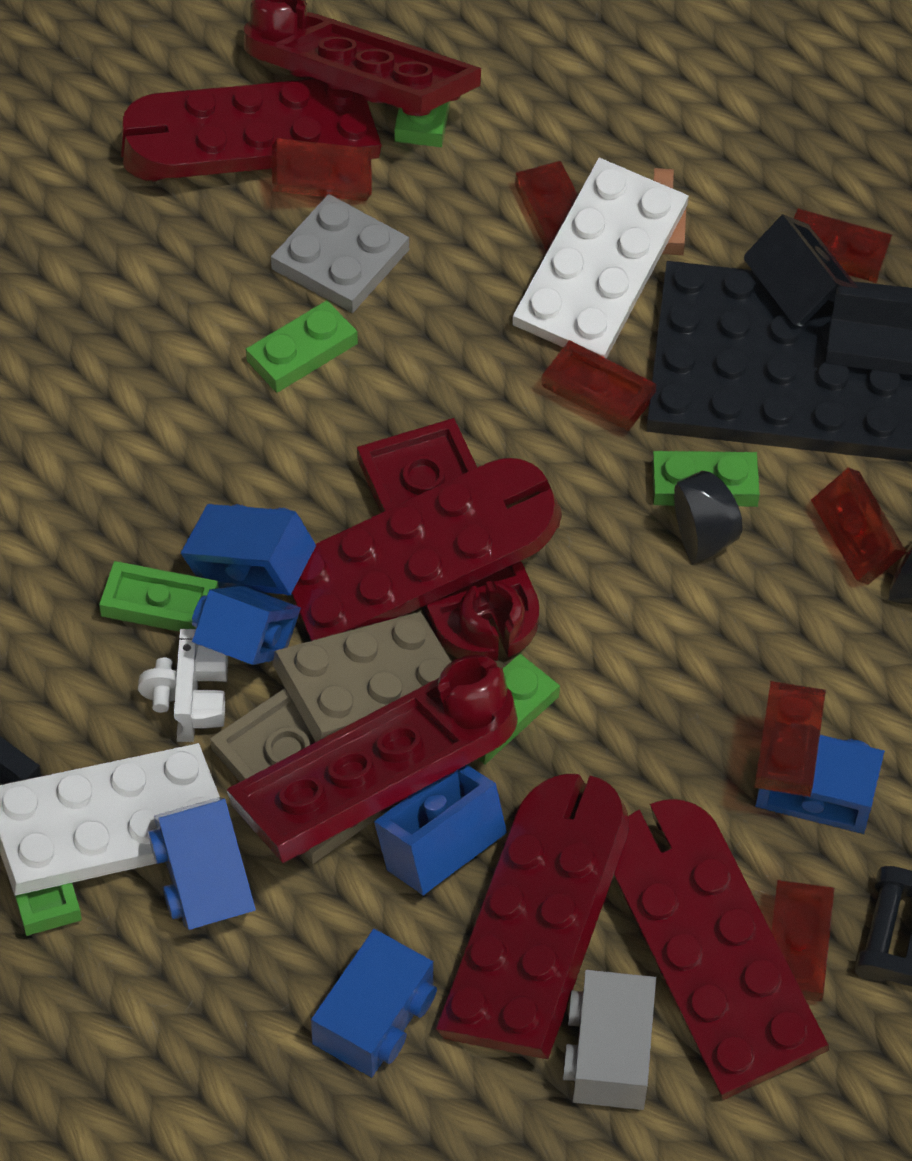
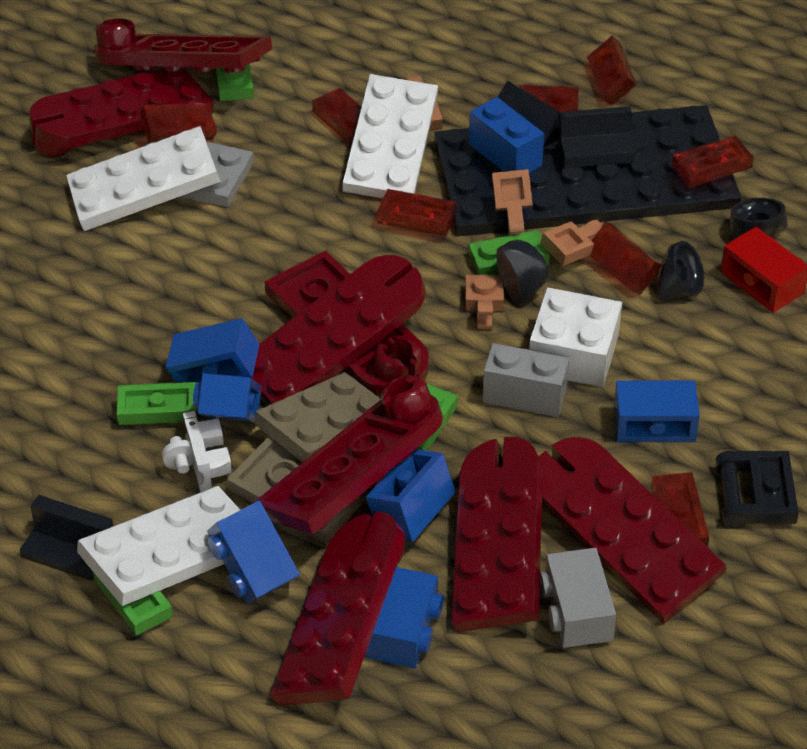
camera: 15 degrees left, 10 degrees down
(246, 247) = (142, 178): none -> white plate
(293, 977) = (340, 612): none -> dark red plate
(301, 346) = (201, 232): bright green plate -> none
(647, 537) = (484, 295): none -> nougat plate
(657, 686) = (525, 380): none -> light grey brick
(732, 393) = (512, 194): none -> nougat plate
(746, 634) = (579, 329): none -> white brick
(752, 304) = (505, 137): none -> blue brick
(790, 739) = (631, 385): clear red plate -> none
(792, 485) = (570, 243): none -> nougat plate

